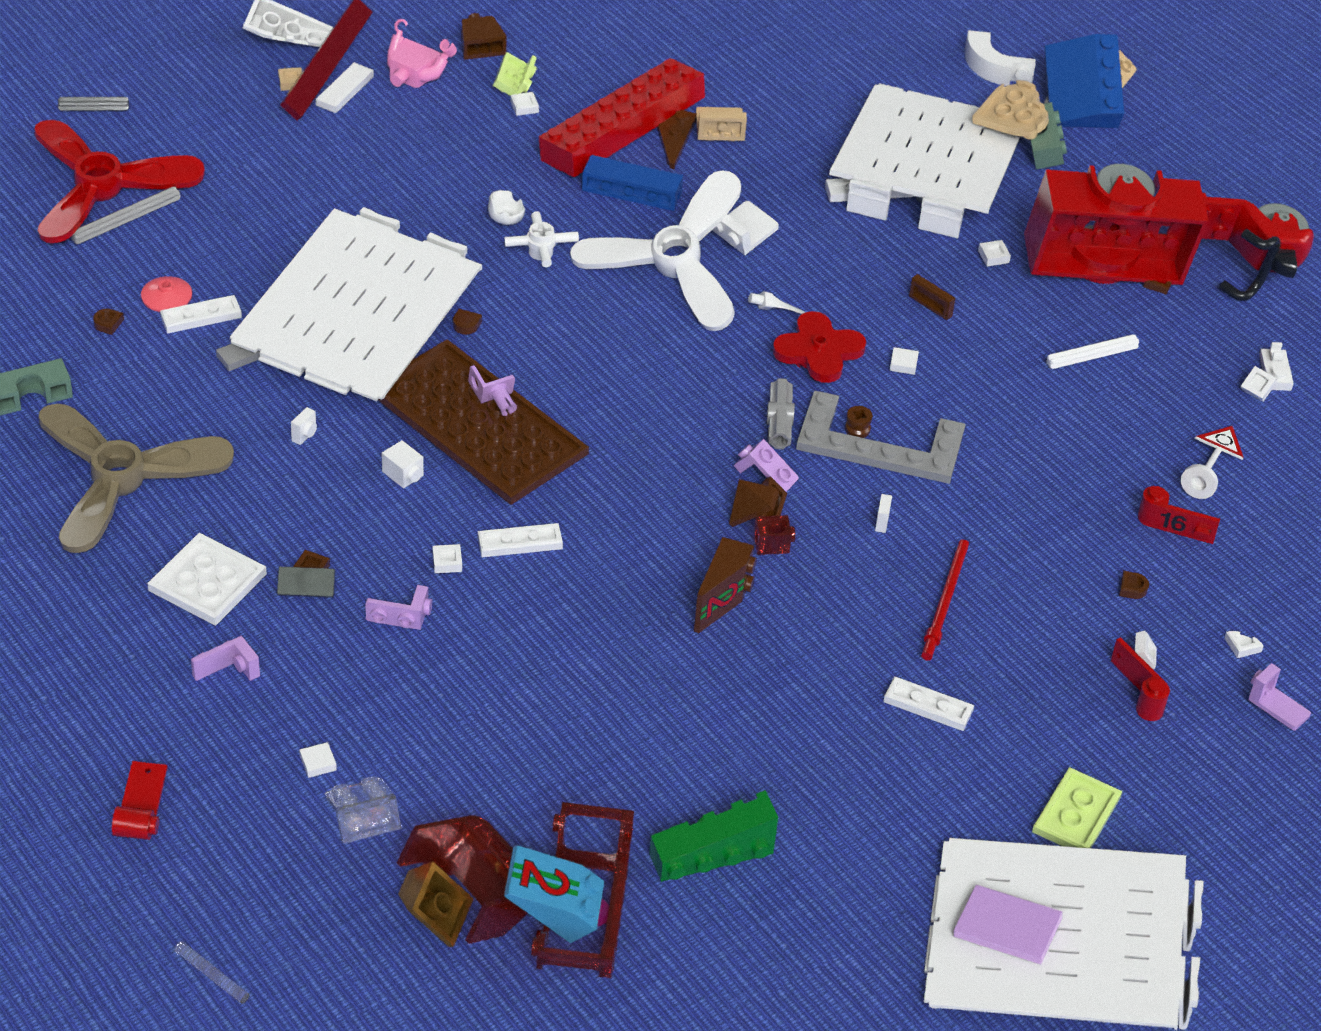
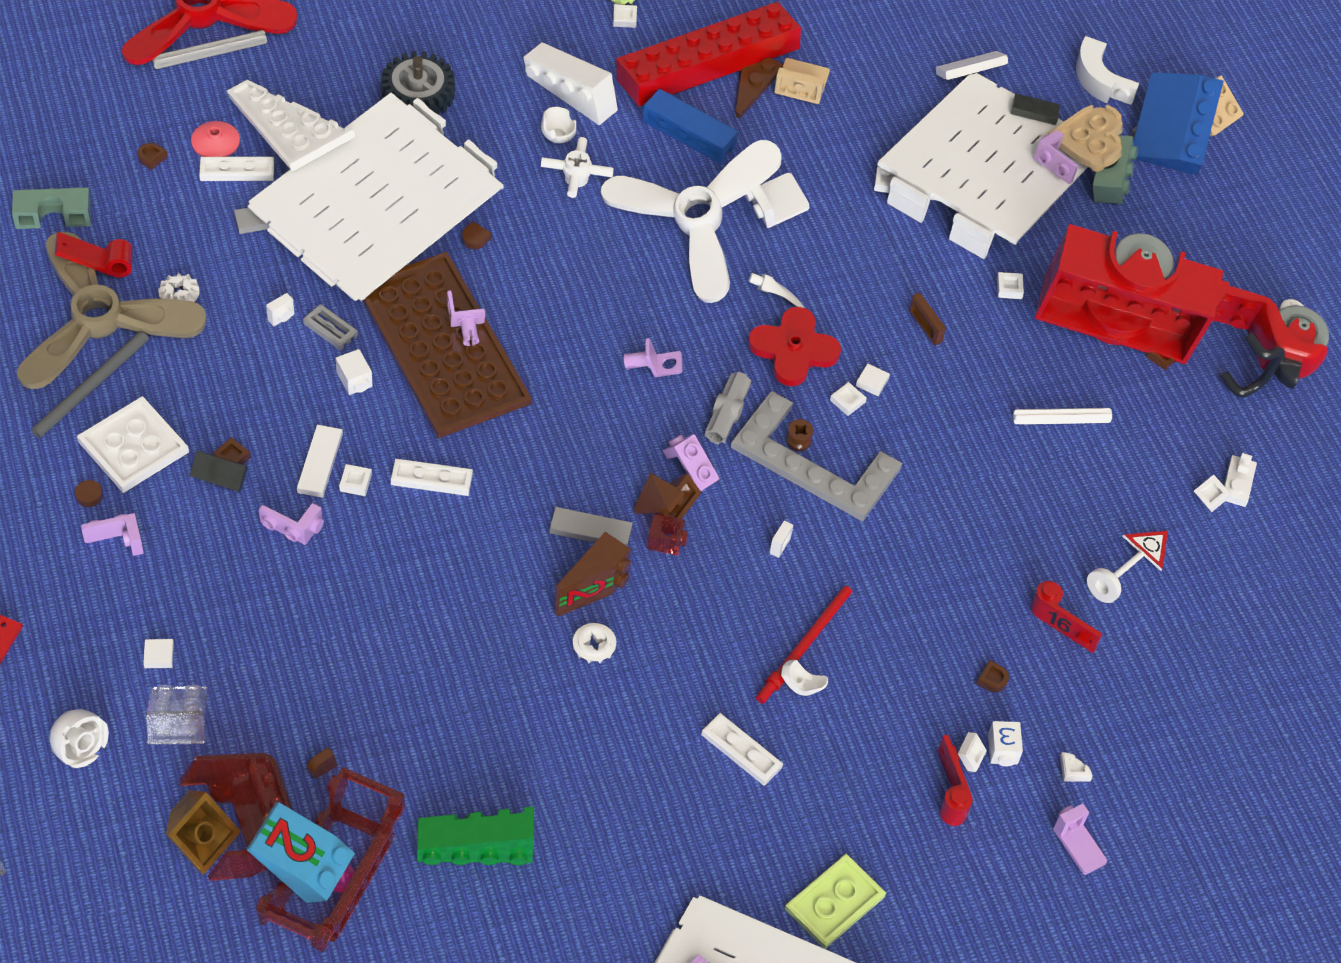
camera: 15 degrees right, 10 degrees up
(113, 418) = (113, 260): none -> red door
(137, 537) = (89, 384): none -> dark grey piece
(180, 429) = (190, 288): none -> white gear
(180, 634) = (88, 493): none -> reddish brown tile
(244, 262) = (288, 128): none -> white wing
(273, 850) = (78, 737): none -> white cylinder
(352, 193) = (420, 78): none -> wheel
(357, 434) = (327, 330): none -> light grey tile
(402, 551) = (319, 461): none -> white tile
(503, 166) = (573, 81): none -> white wedge
(529, 814) = (322, 763): none -> reddish brown tile
(685, 388) = (654, 361): none -> lavender bracket
(688, 547) = (588, 526): none -> light grey tile
(746, 637) = (601, 635): none -> white gear
(872, 78) = (971, 65): none -> white tile
(888, 382) = (848, 399): none -> white tile
(949, 101) = (1035, 109): none -> pearl dark grey tile
(959, 631) = (800, 680): none -> white hair
(990, 136) = (1049, 156): none -> lavender bracket
(1172, 635) = (1005, 743): none -> white brick

